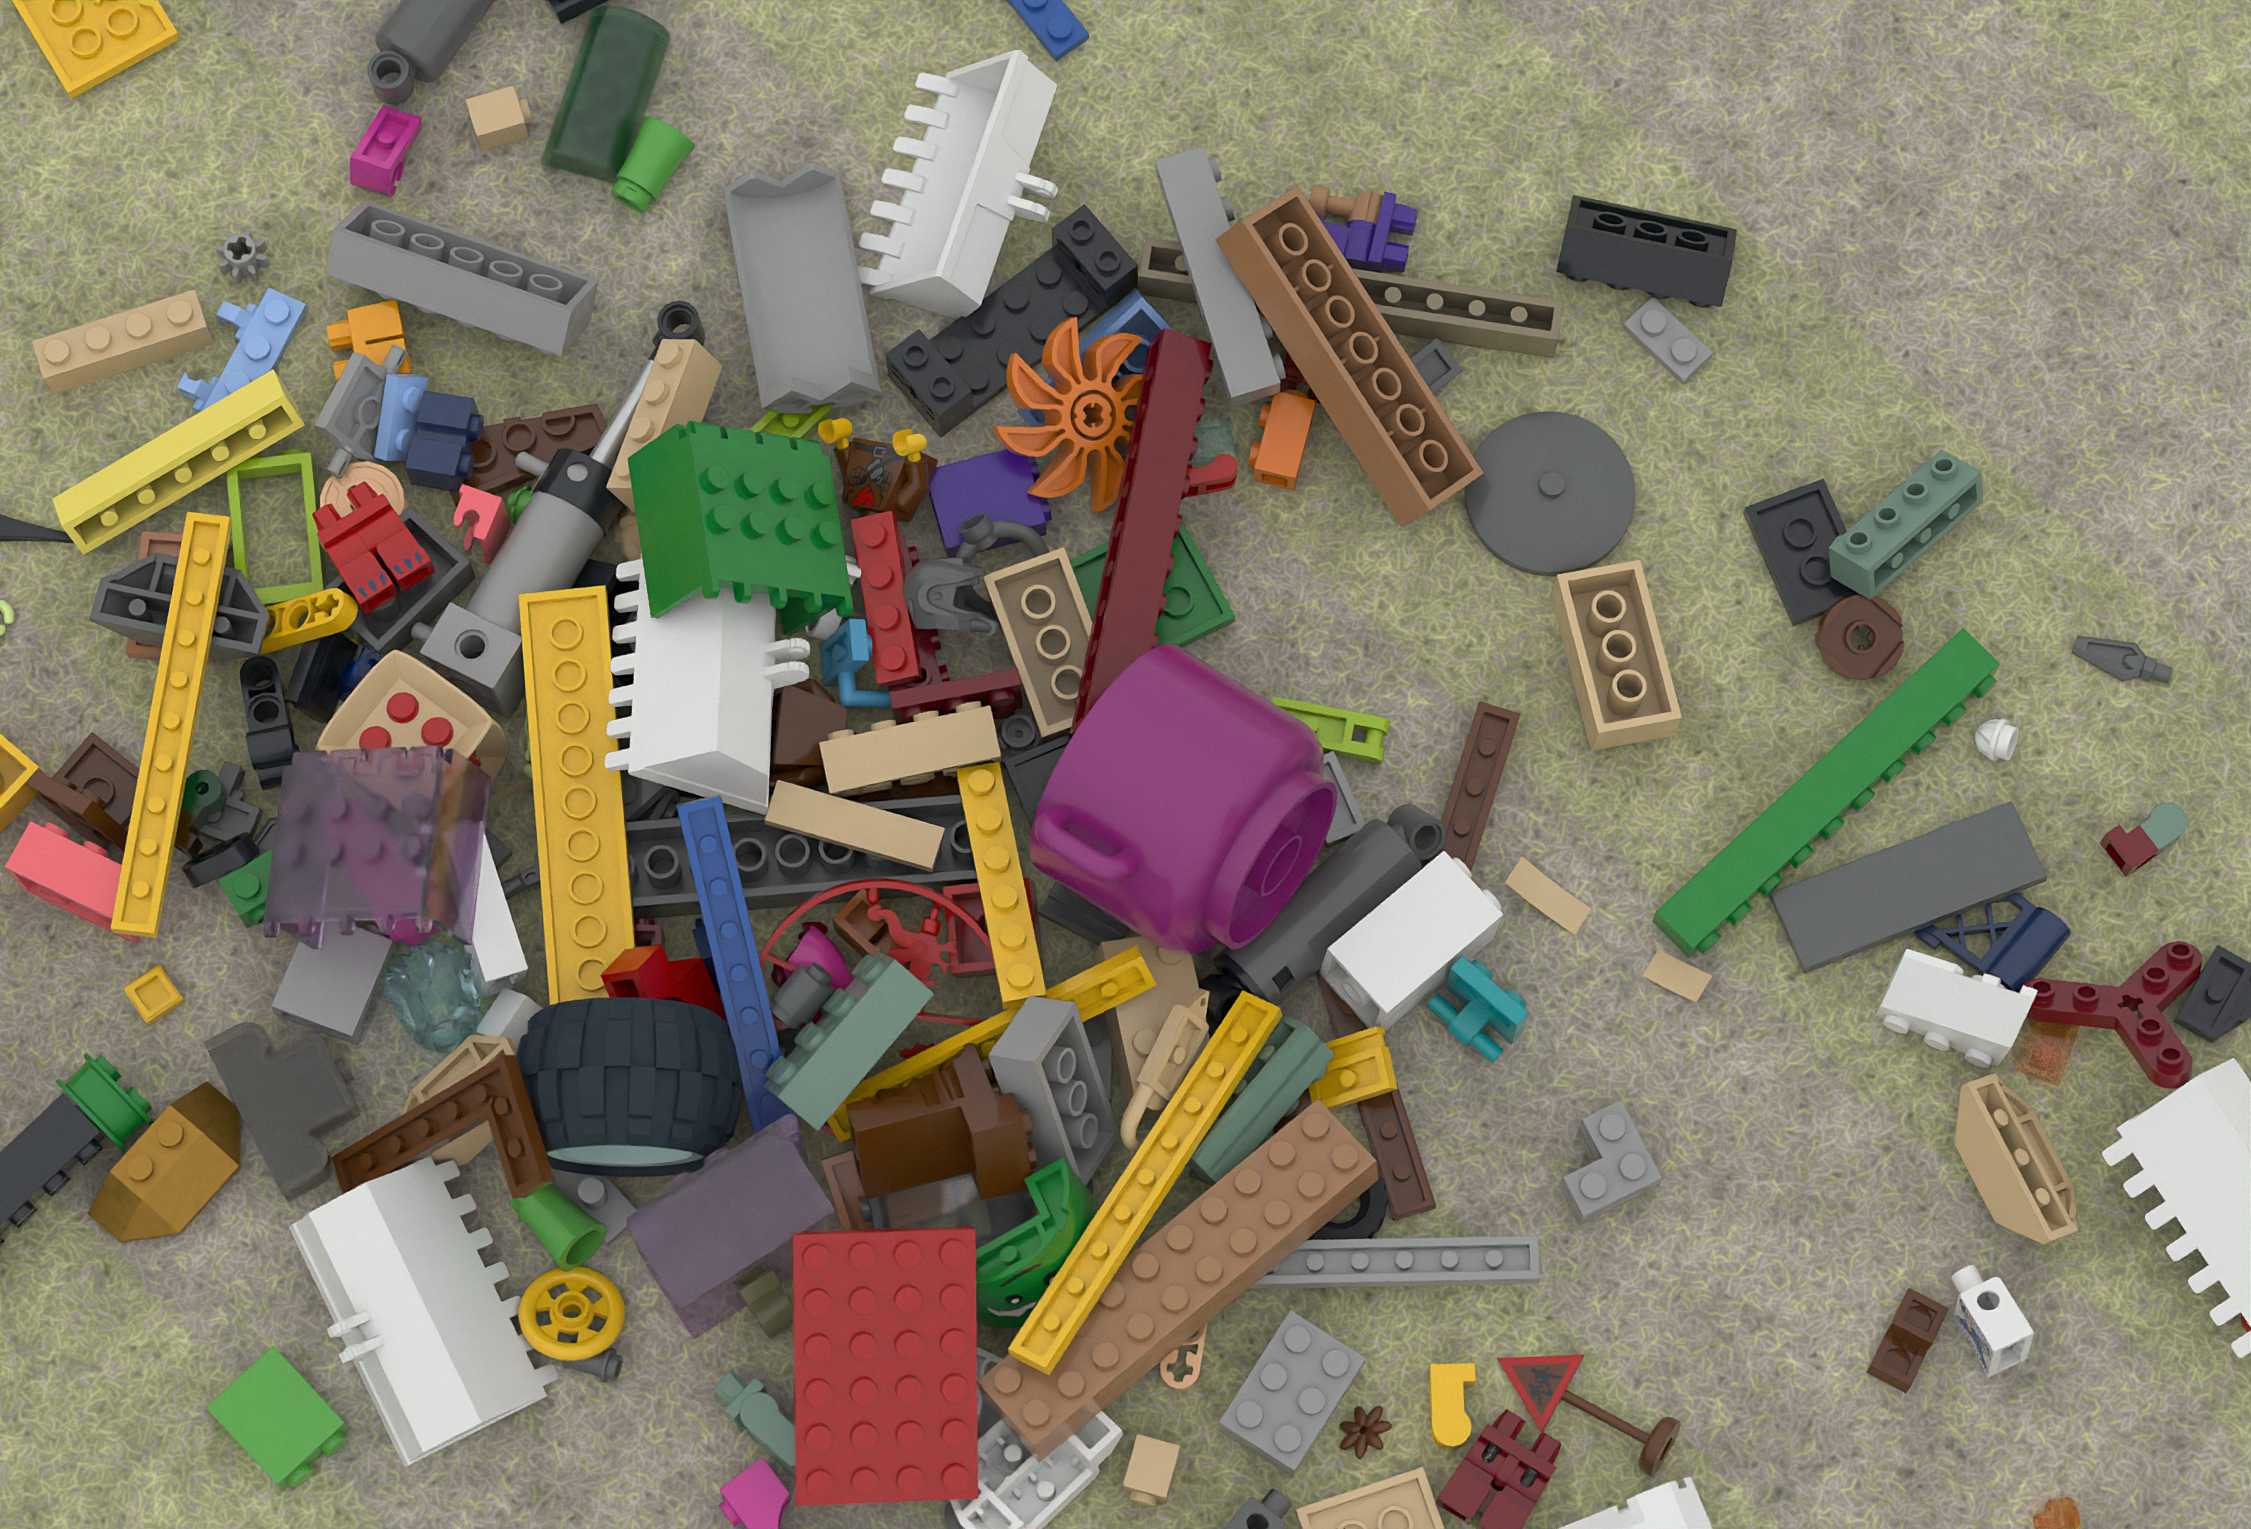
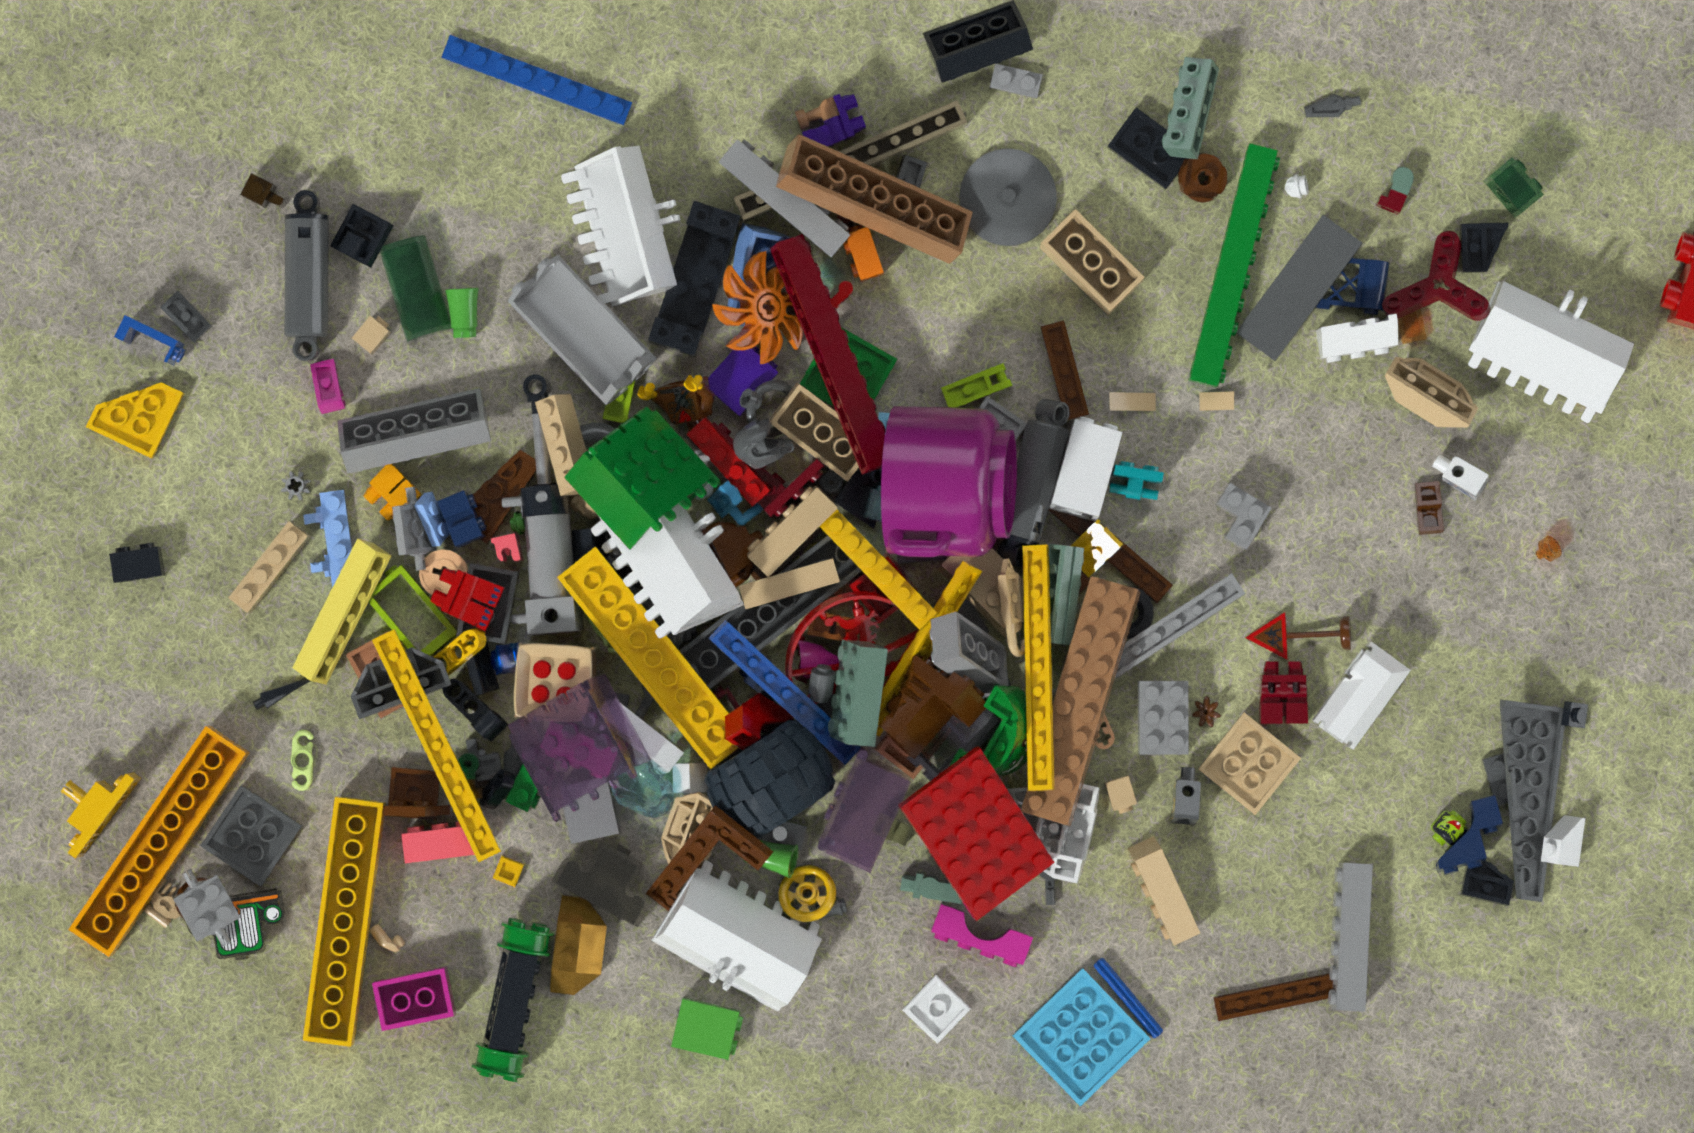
camera: 35 degrees left, 15 degrees up
(1448, 1421) = (1240, 681): yellow leg -> none

